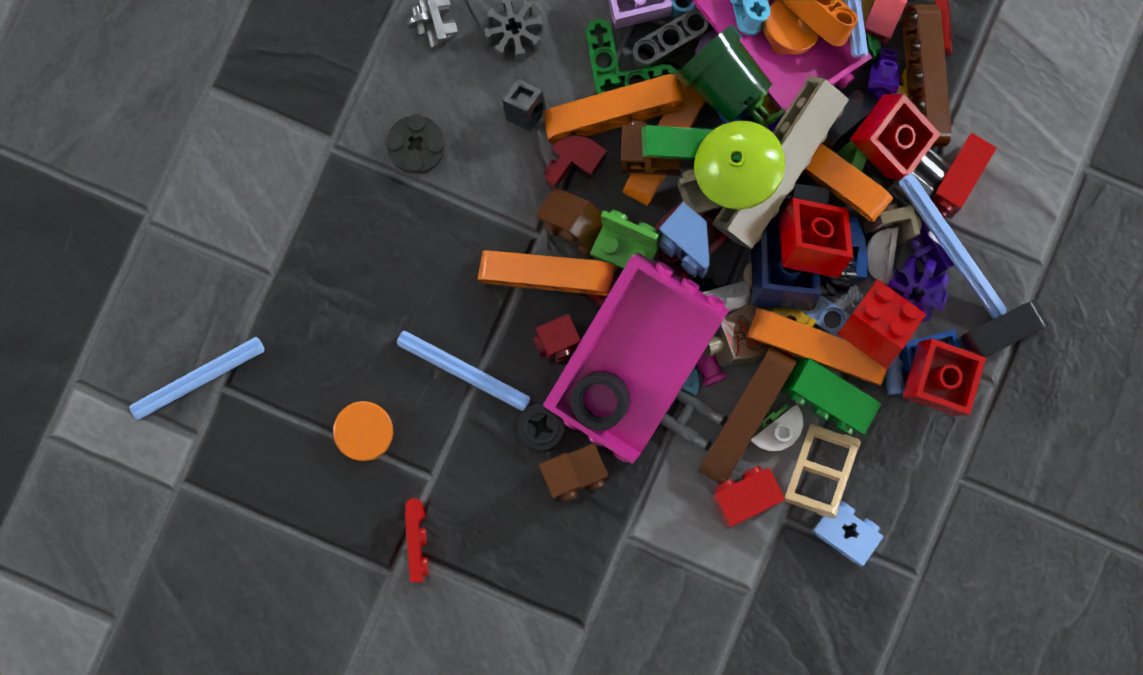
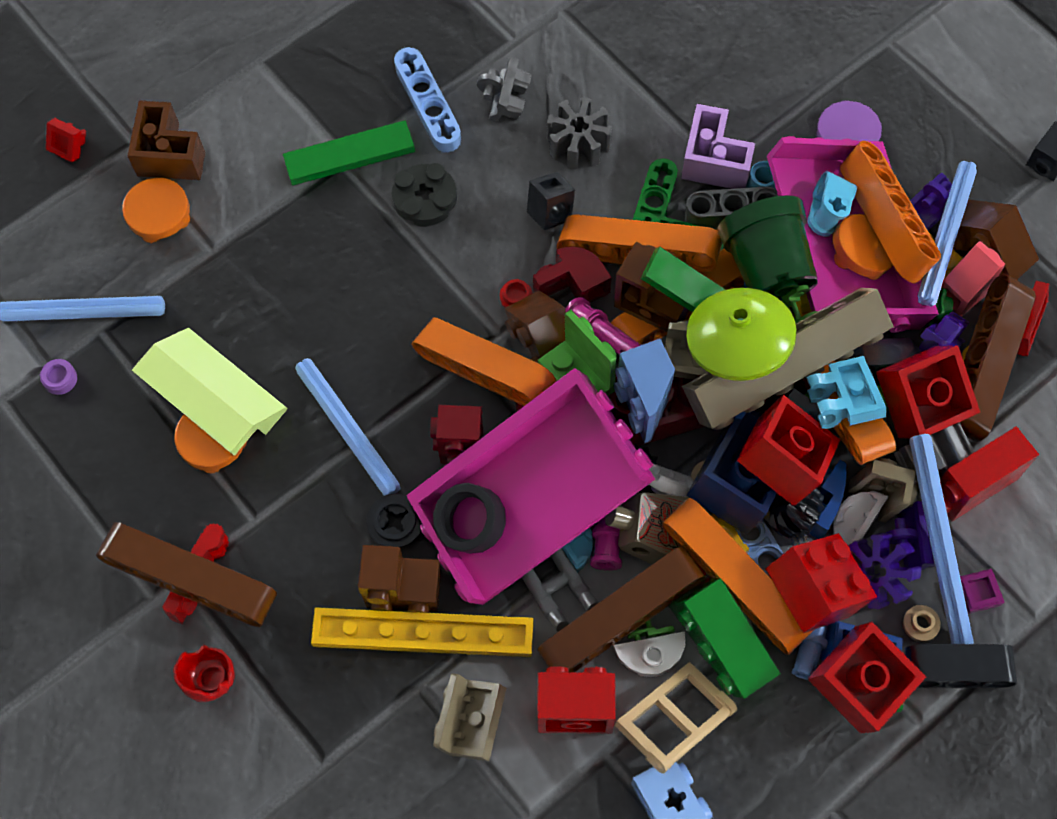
camera: 25 degrees right, 15 degrees down
(93, 241) = (64, 139): none -> red tile
(179, 214) = (159, 147): none -> reddish brown brick
(206, 264) = (156, 209): none -> orange tile
(213, 442) = (58, 376): none -> medium lavender tile
(333, 137) = (348, 152): none -> green tile
(341, 395) = (209, 389): none -> yellowish green slope
(373, 54) = (427, 99): none -> light blue beam
(416, 549) = (186, 574): none -> reddish brown beam
(467, 611) = (204, 673): none -> red hair
(534, 196) = (513, 292): none -> red plate
(607, 500) = (422, 632): none -> yellow plate
(615, 196) = (601, 326): none -> dark pink pin
(675, 545) = (469, 718): none -> dark tan bracket
(844, 166) = (856, 389): none -> medium azure plate
(954, 315) = (916, 632): none -> tan plate
(994, 265) = (981, 591): none -> magenta tile

